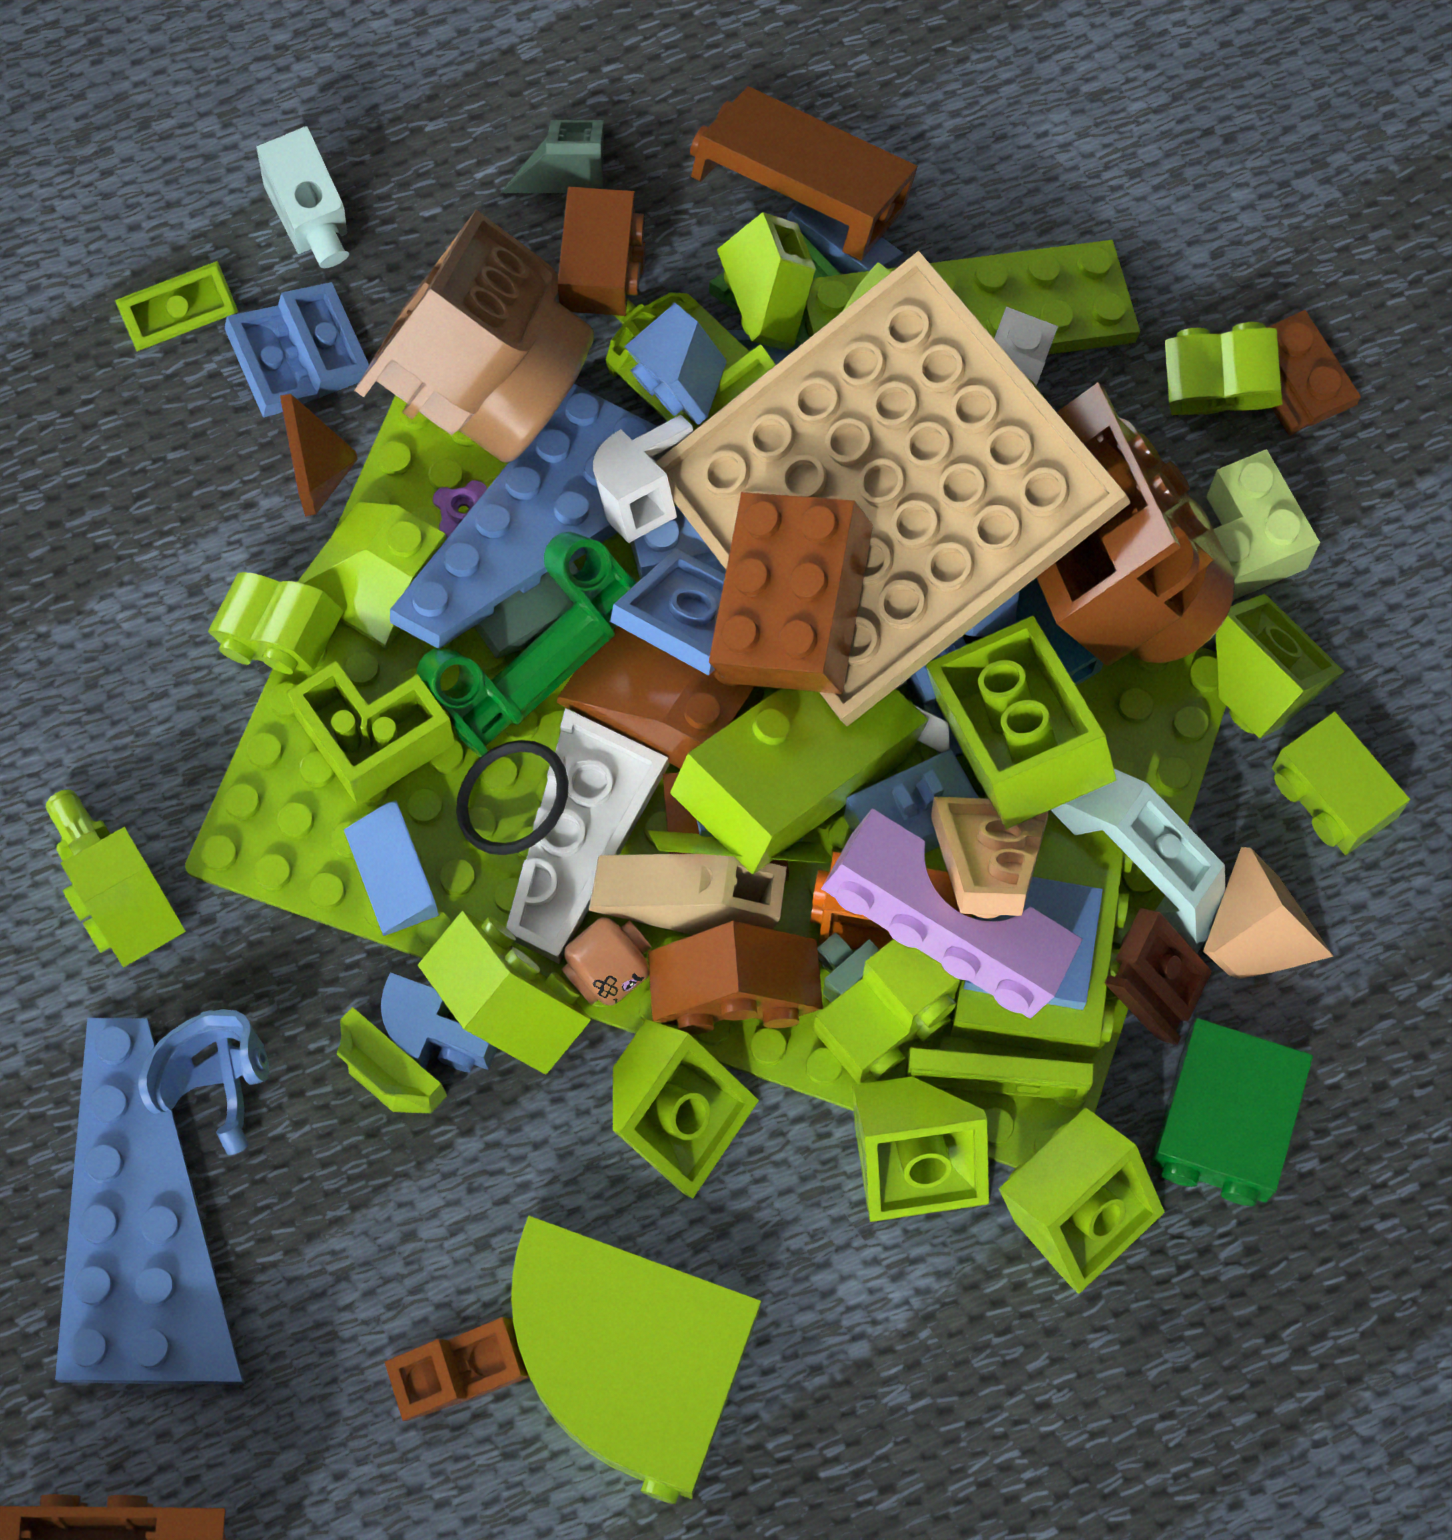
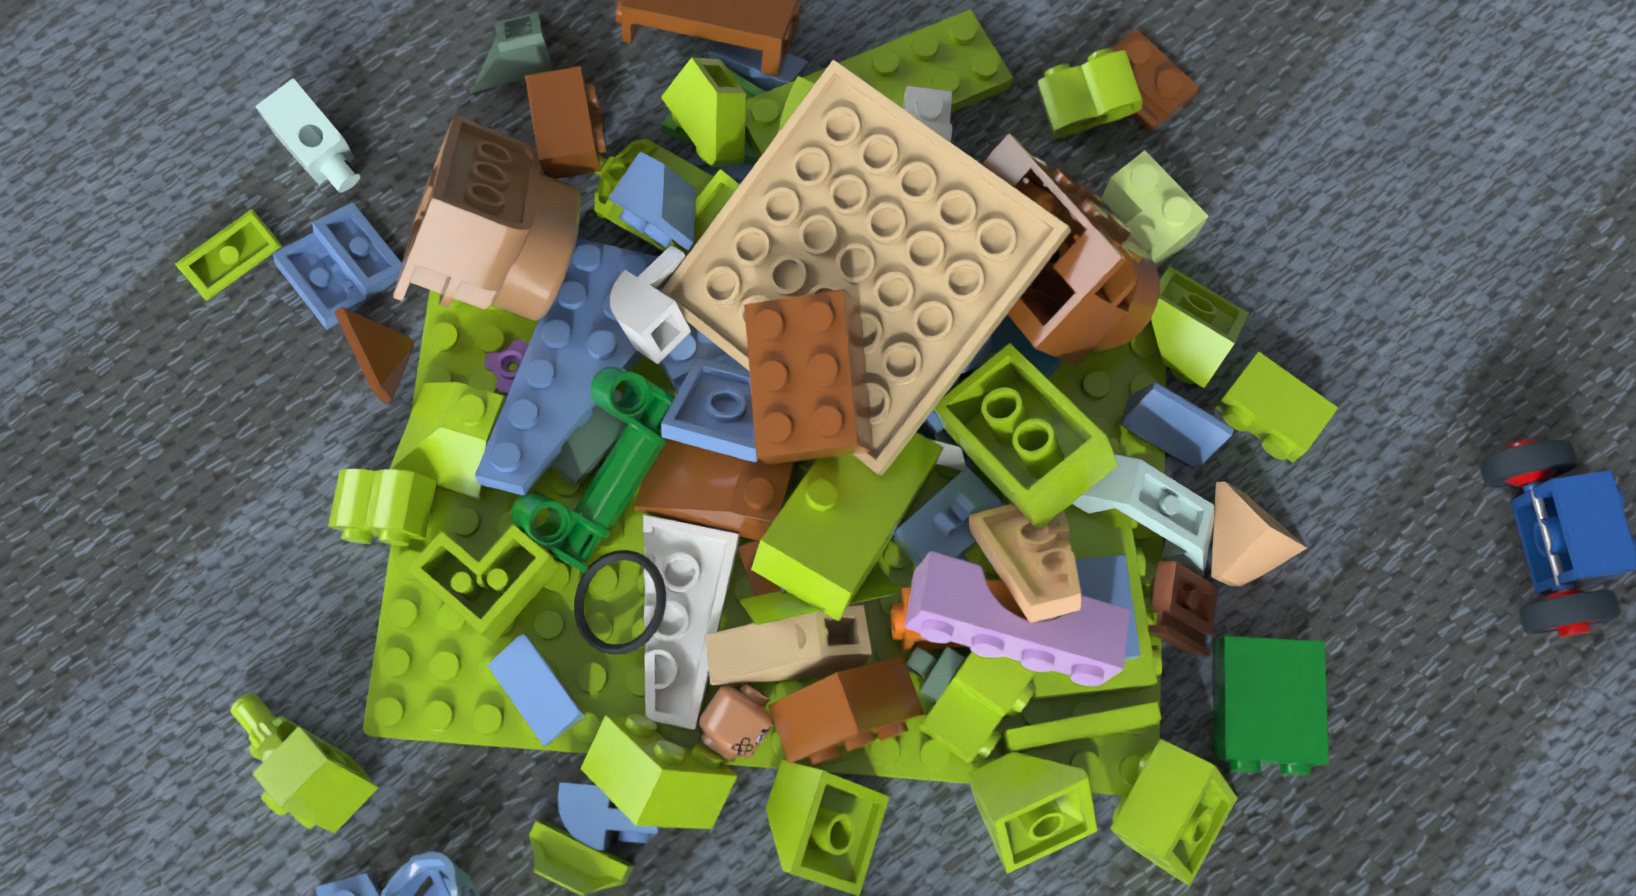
camera: 15 degrees left, 5 degrees up
(1211, 770) = (1174, 424): none -> medium blue slope

